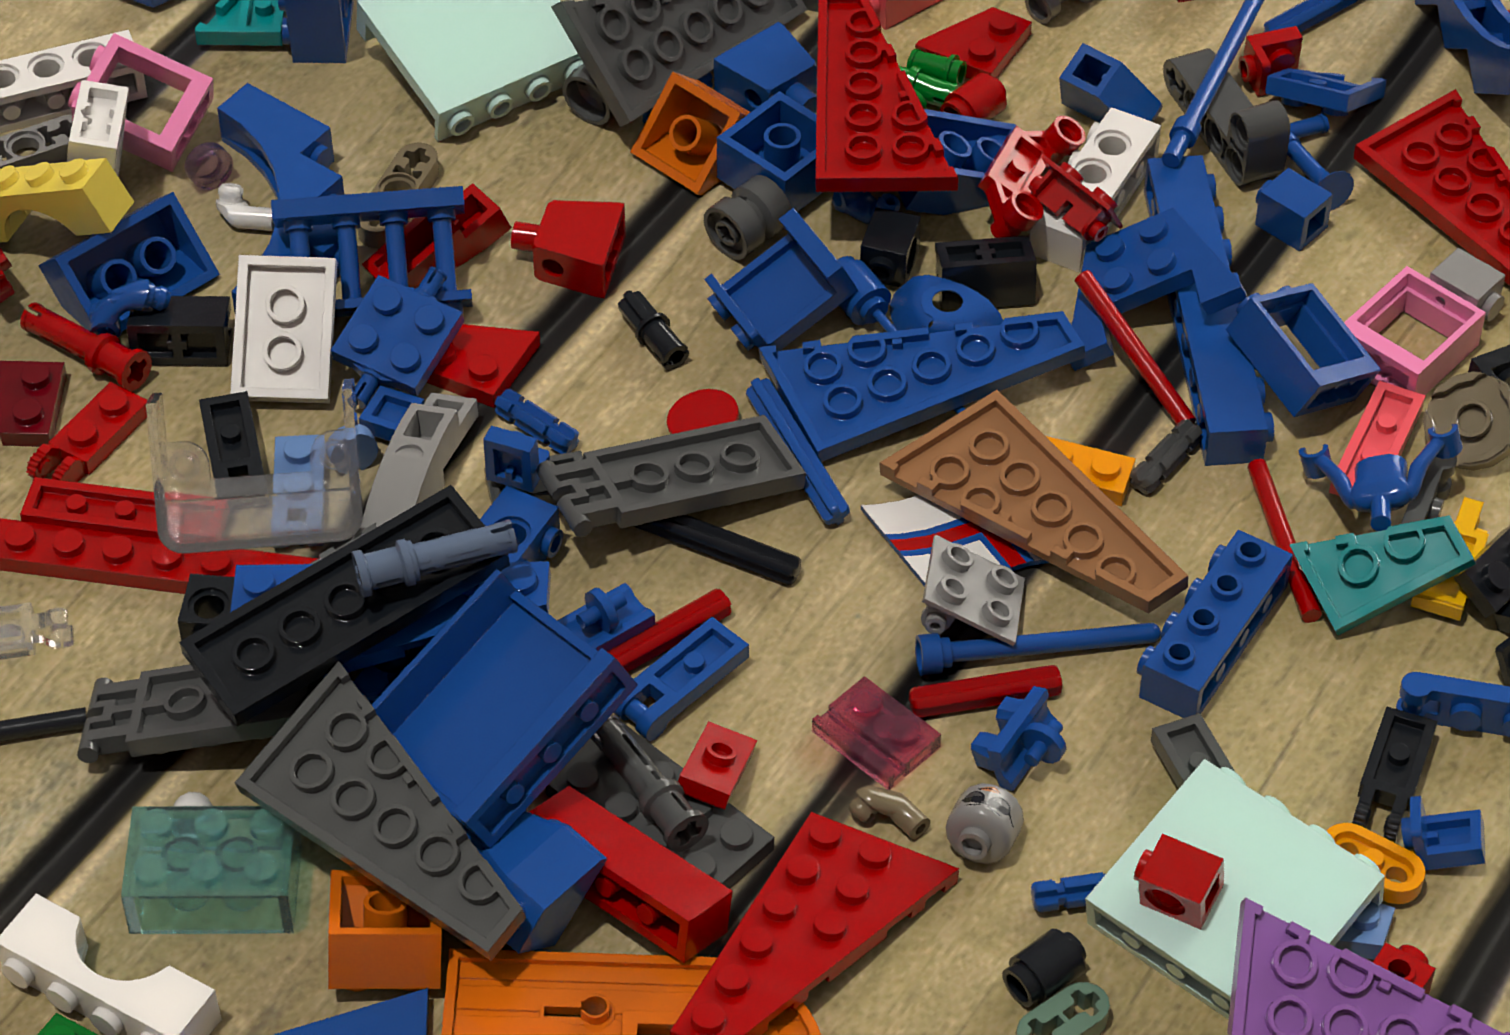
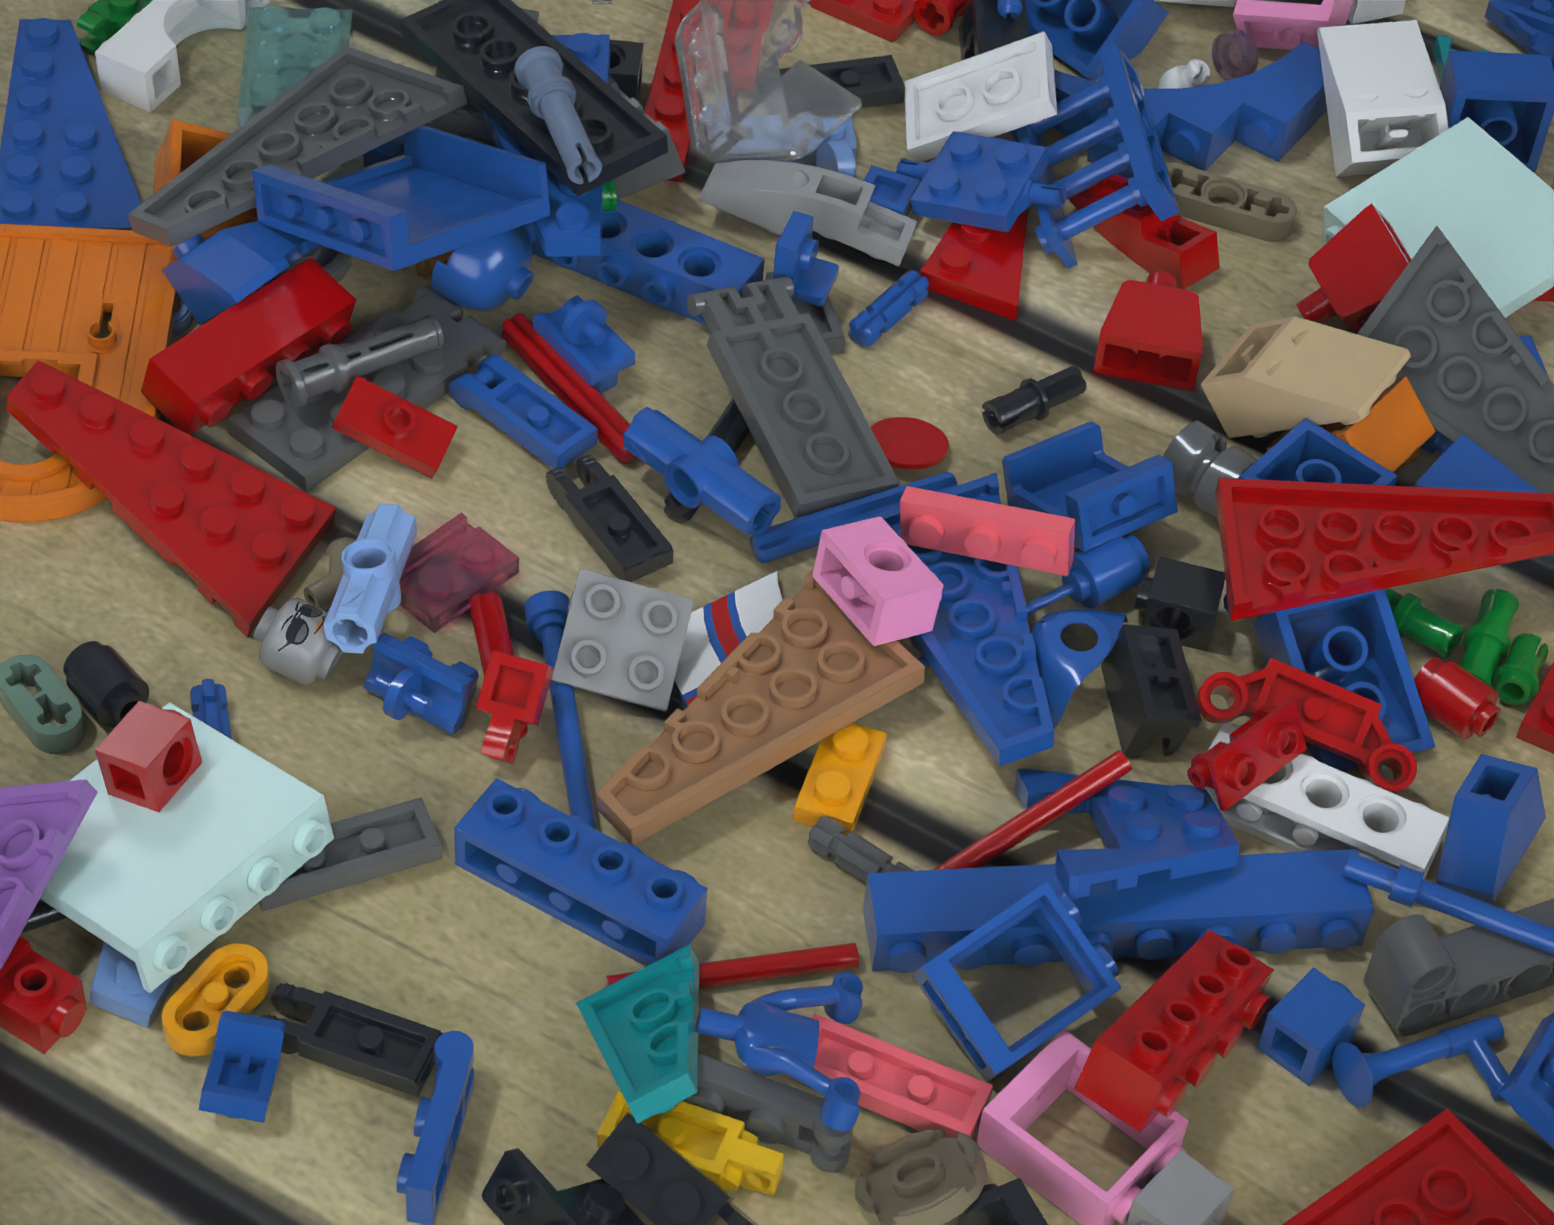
camera: 85 degrees right, 0 degrees up
(310, 61) = (1378, 94): none -> white slope
(531, 95) = (1355, 270): none -> red torso
(664, 136) = (1298, 372): none -> tan slope
(780, 532) = (702, 472): none -> blue piece
(811, 614) = (611, 520): none -> black hinge
(856, 339) = (987, 530): none -> coral plate
(918, 407) = (877, 580): none -> bright pink brick
(955, 760) = (370, 578): none -> light blue piece
(1051, 661) = (513, 694): none -> red plate
(1339, 261) = (1176, 1031): none -> red brick

